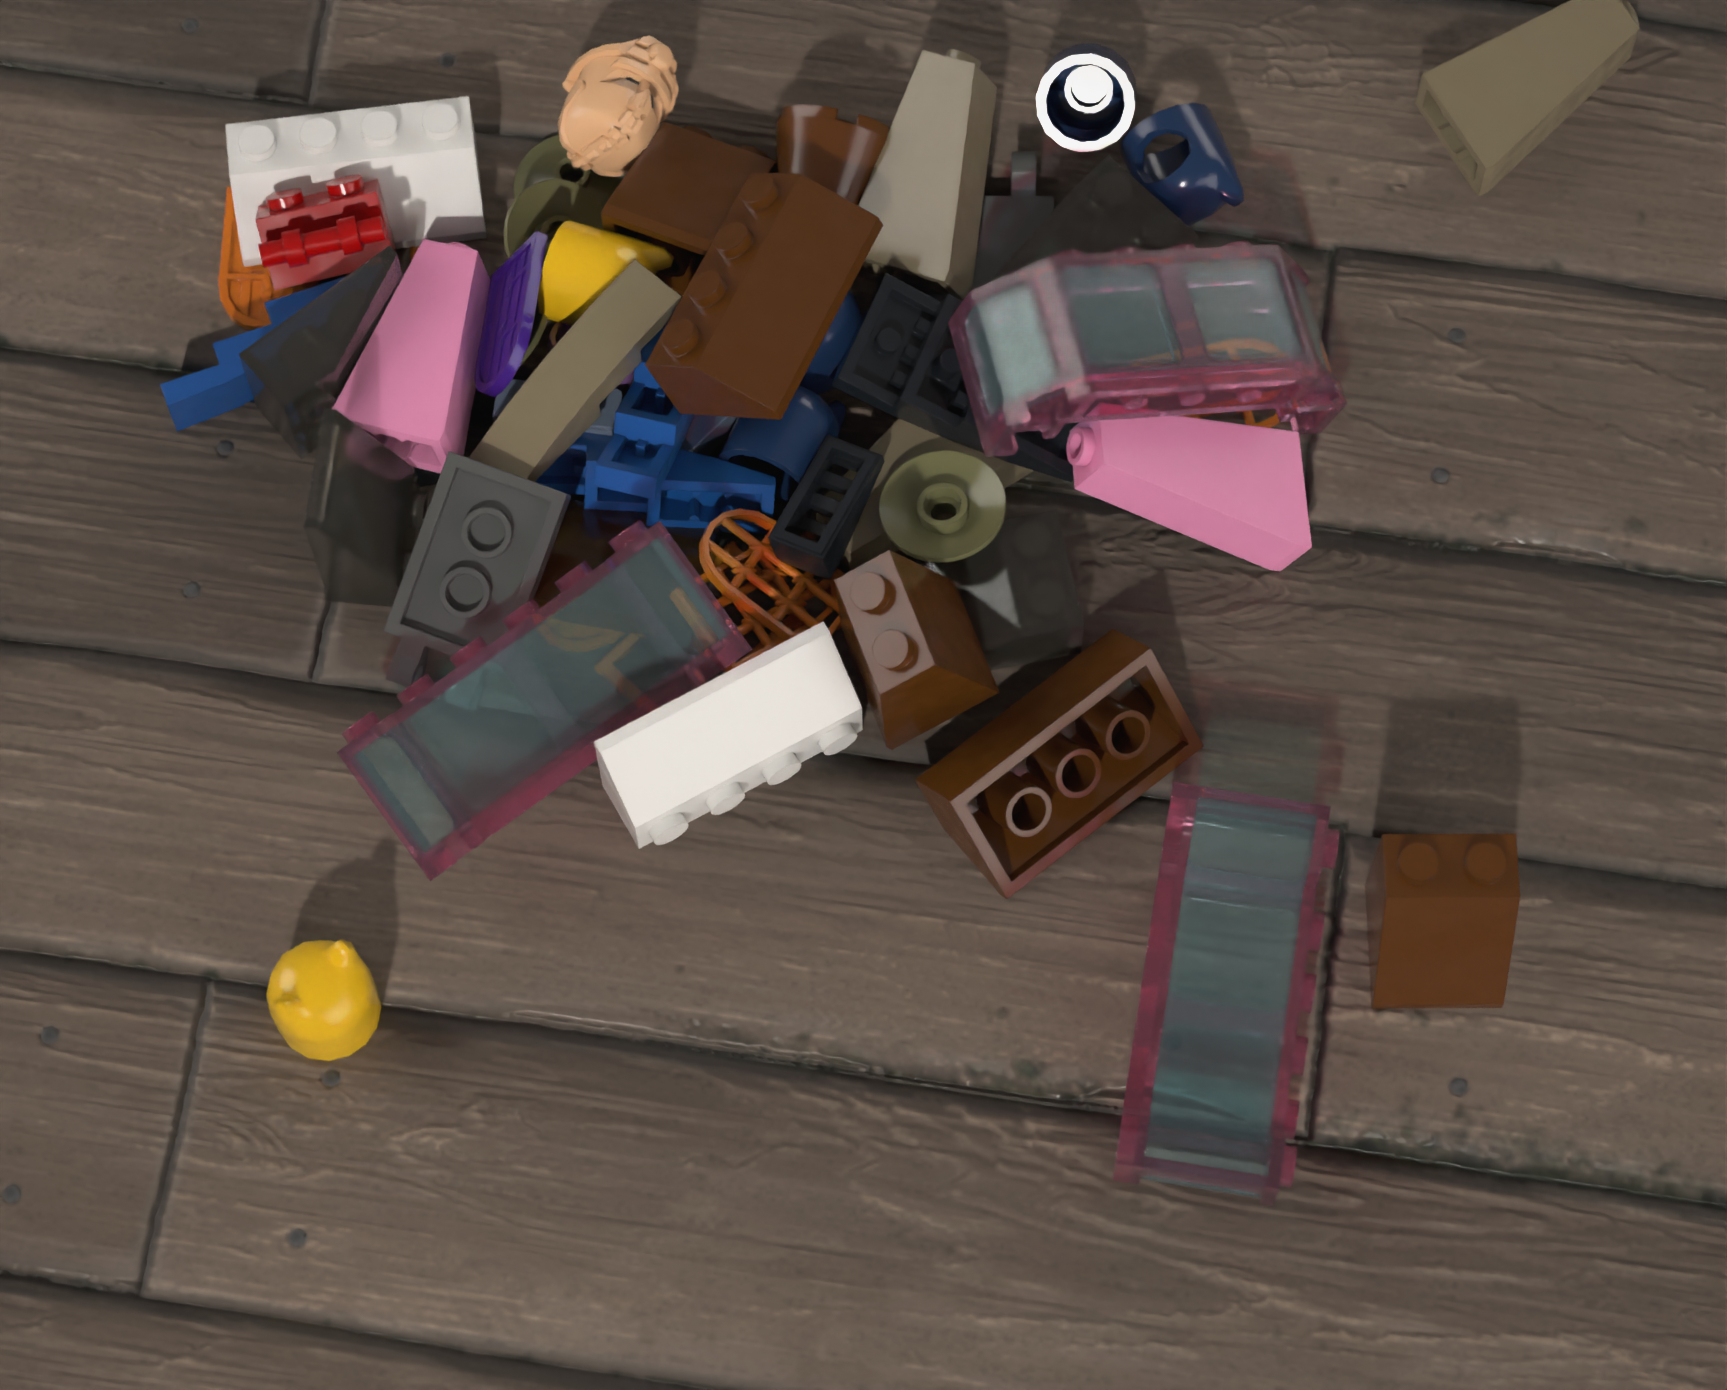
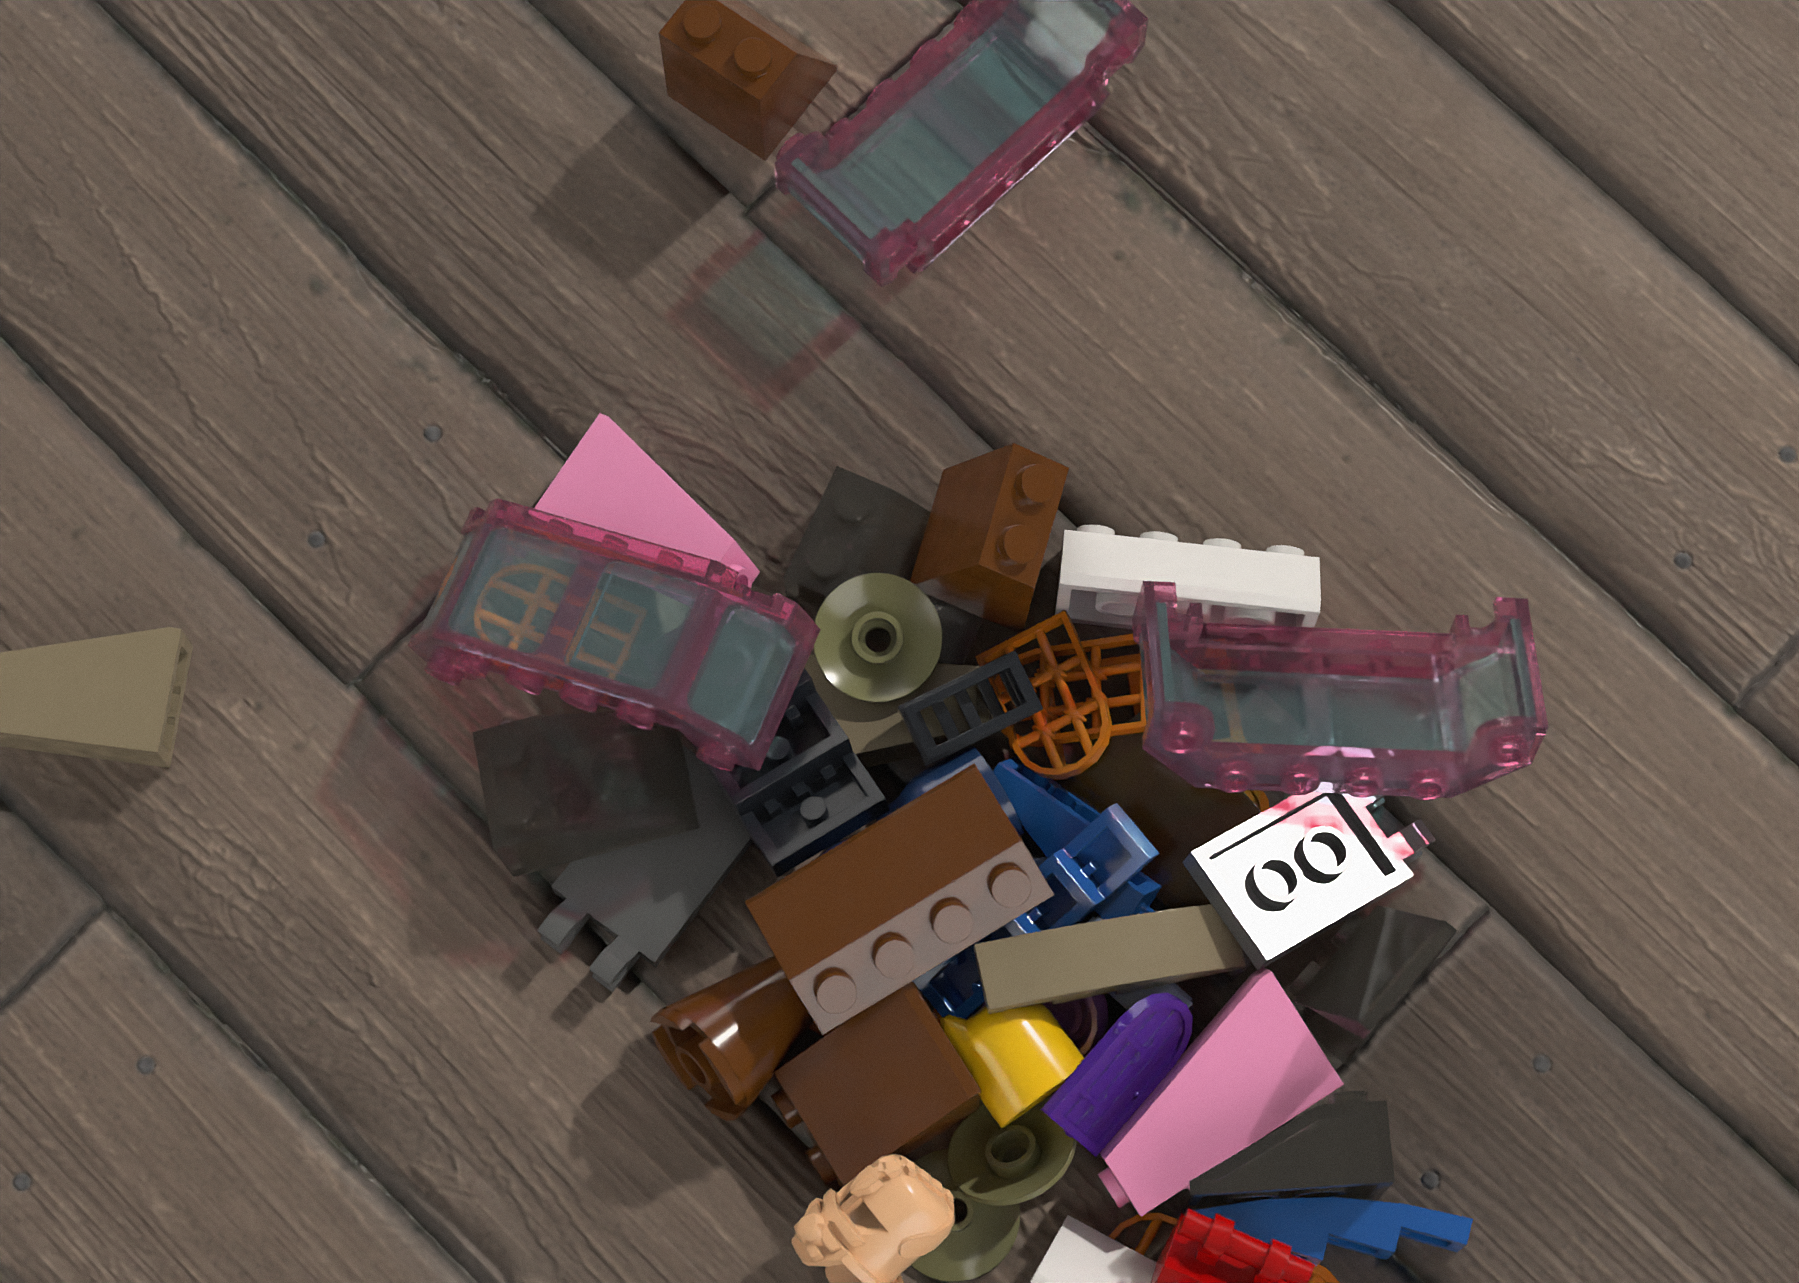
camera: 145 degrees left, 5 degrees up
(323, 999) = (1659, 603): yellow piece -> none
(933, 176) = (656, 951): dark tan slope -> none
(1061, 761) = (930, 399): reddish brown slope -> none
(1086, 95) = (440, 953): piece -> none
(1194, 174) = (427, 817): dark blue piece -> none

